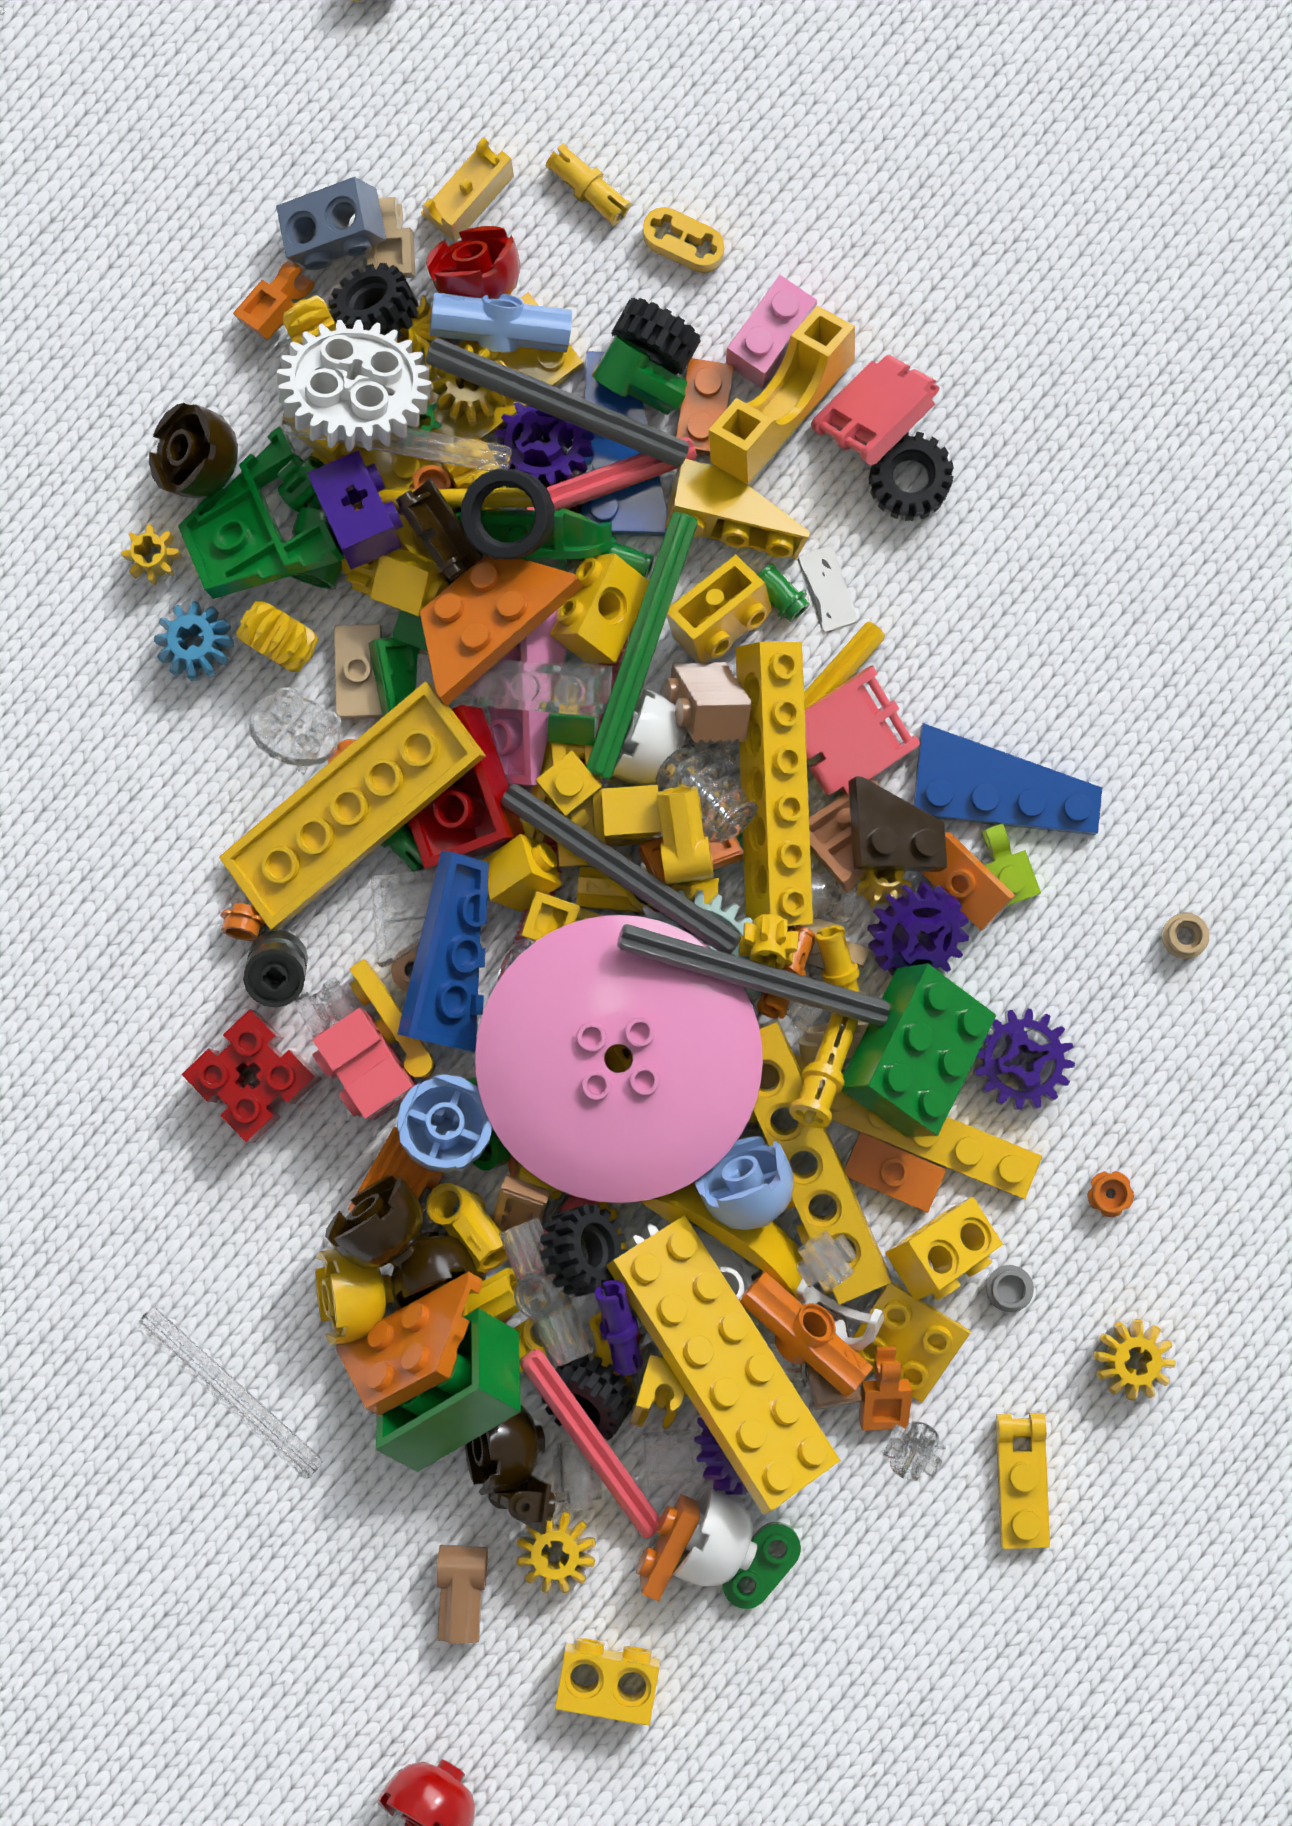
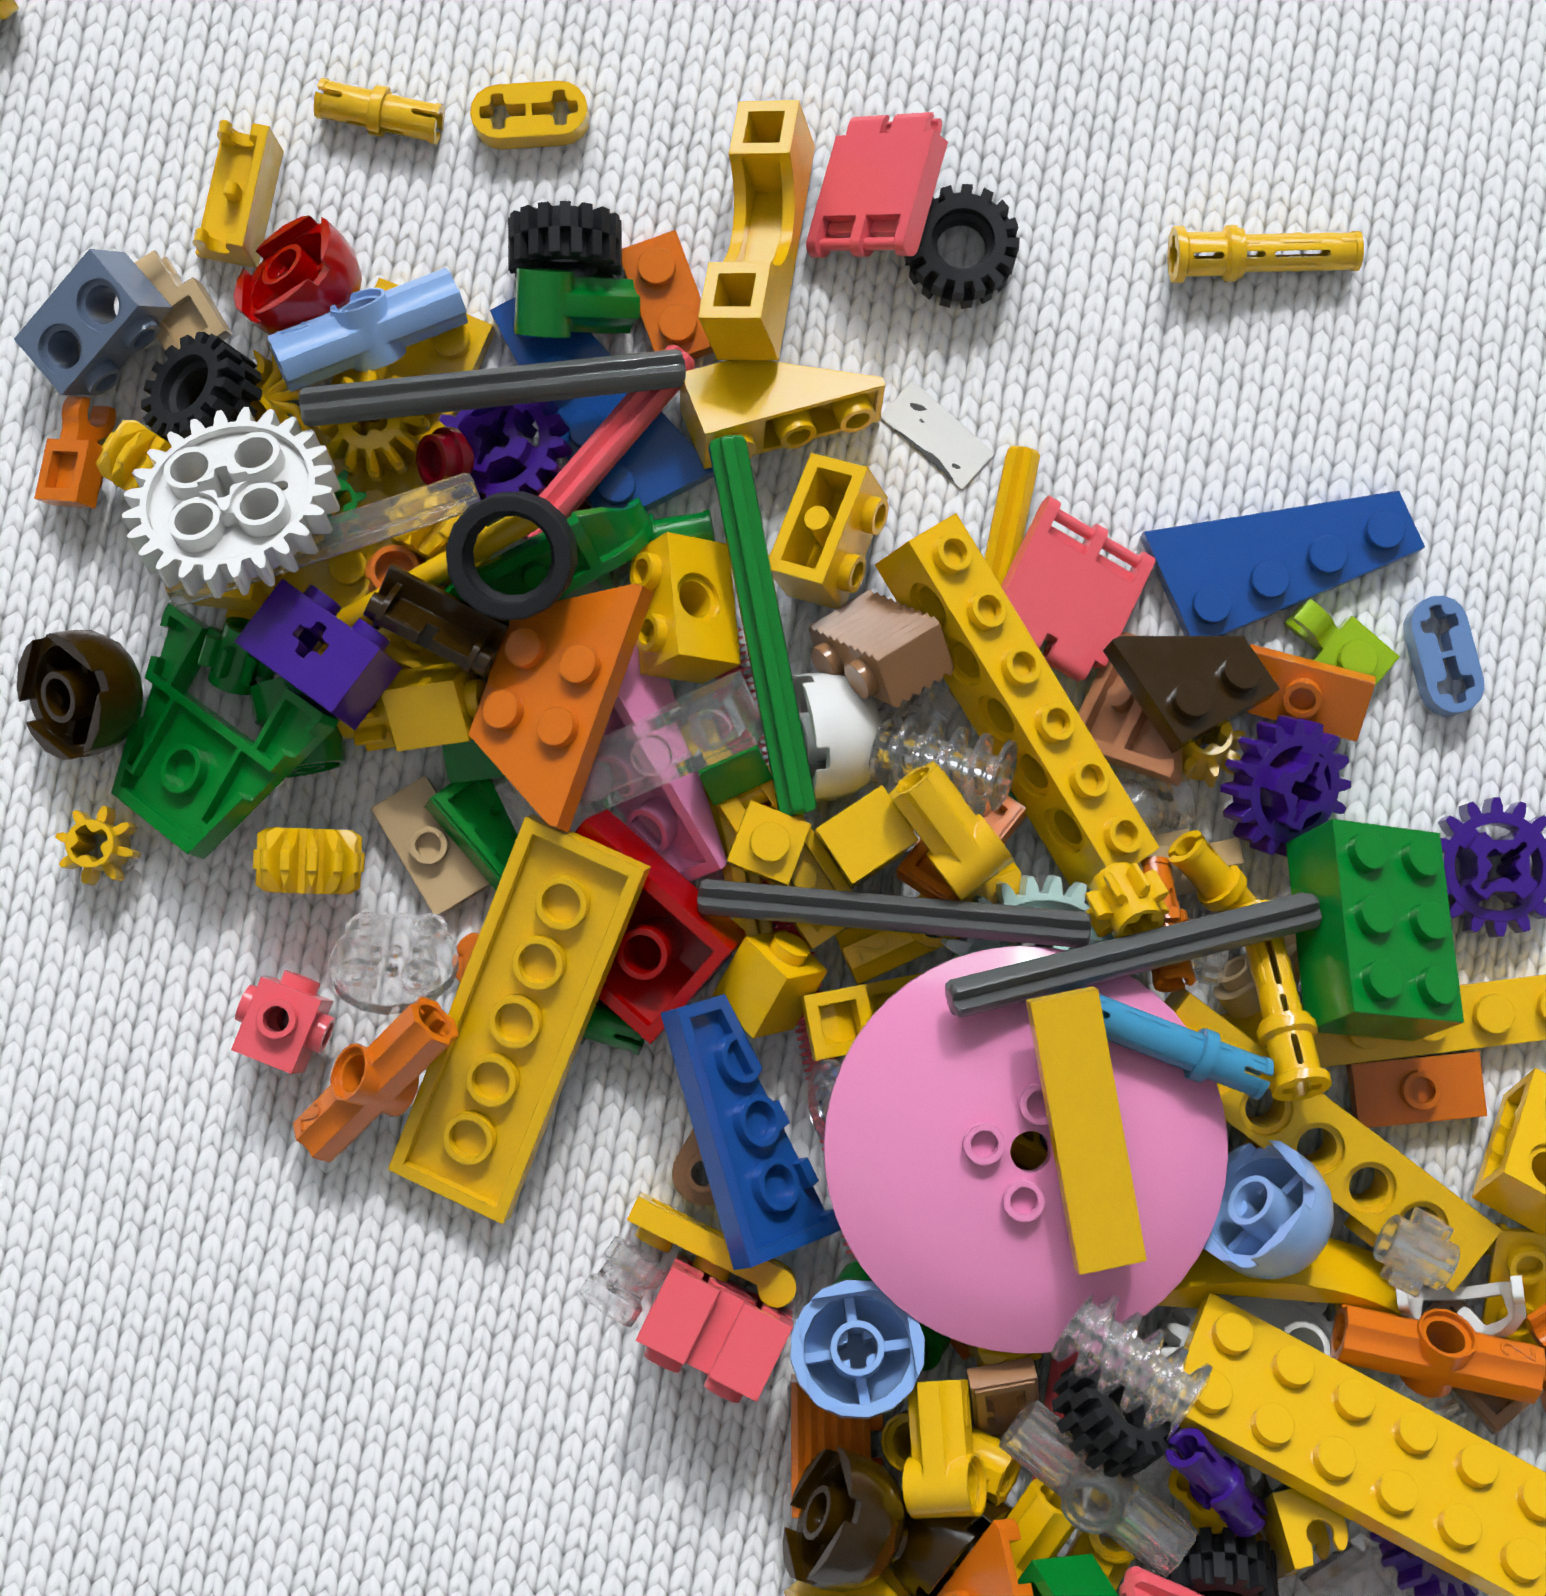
camera: 30 degrees left, 0 degrees up
(189, 727) = (262, 1029): none -> coral brick
(193, 657) = (198, 903): dark azure gear -> none
(222, 1076) = (544, 1438): red brick -> none
(242, 794) = (375, 1079): none -> orange piece
(242, 922) = (461, 1232): orange plate -> none
(275, 968) = (537, 1270): pearl dark grey wheel -> none
(399, 912) = (649, 1112): clear wing -> none
(456, 1226) = (943, 1472): none -> yellow piece
(503, 428) = (443, 455): none -> dark red plate
(603, 1219) = (1132, 1363): none -> clear piece
(657, 1061) = (1086, 1130): none -> yellow tile
(743, 1041) = (1197, 1053): none -> dark azure pin
(766, 333) = (698, 165): bright pink brick -> none
(783, 594) = (892, 470): green pin -> none
(1081, 912) = (1458, 652): none -> medium blue beam
(1154, 612) = (1231, 245): none -> yellow pin

